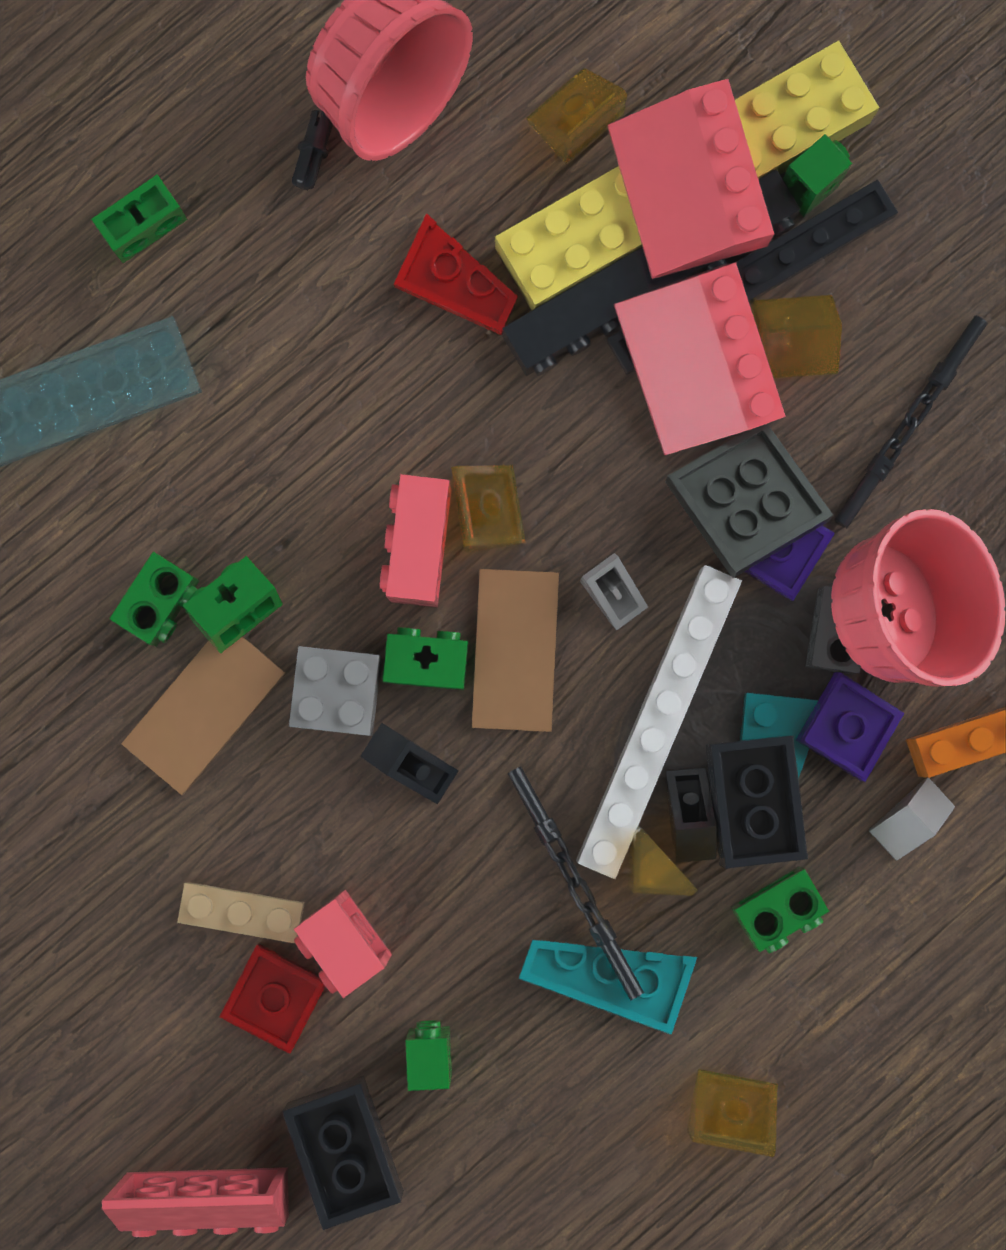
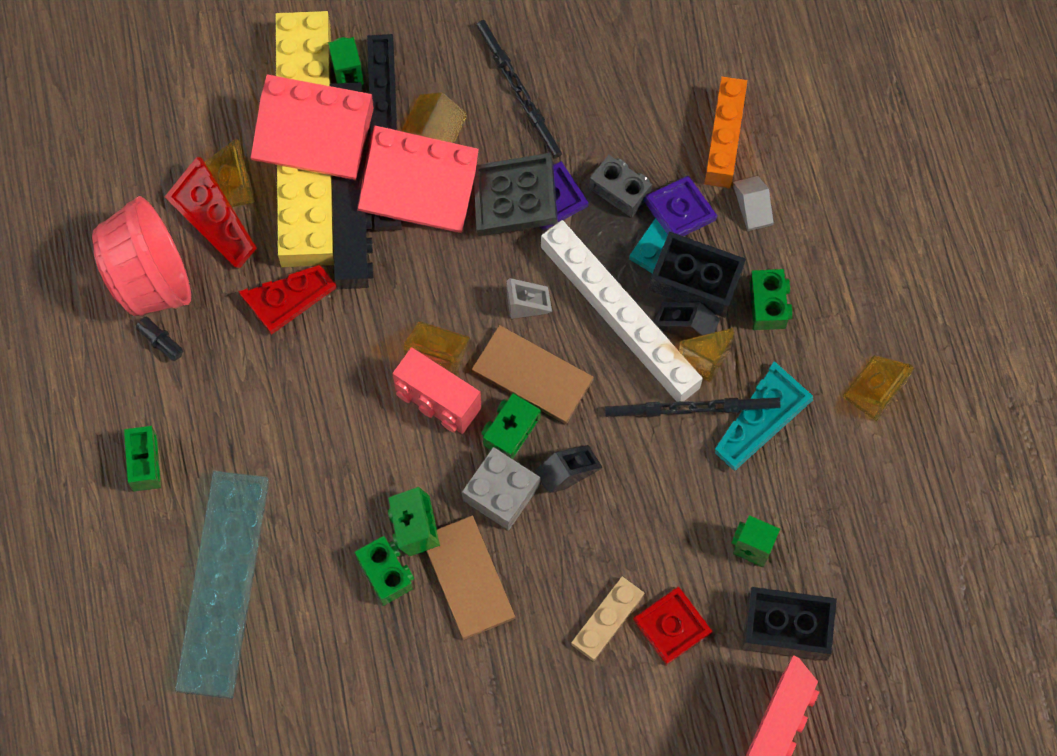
camera: 65 degrees left, 15 degrees down
(342, 945) = (659, 552): coral brick -> none
(517, 110) = (208, 210): none -> red wing
(942, 599) = (627, 127): coral piece -> none

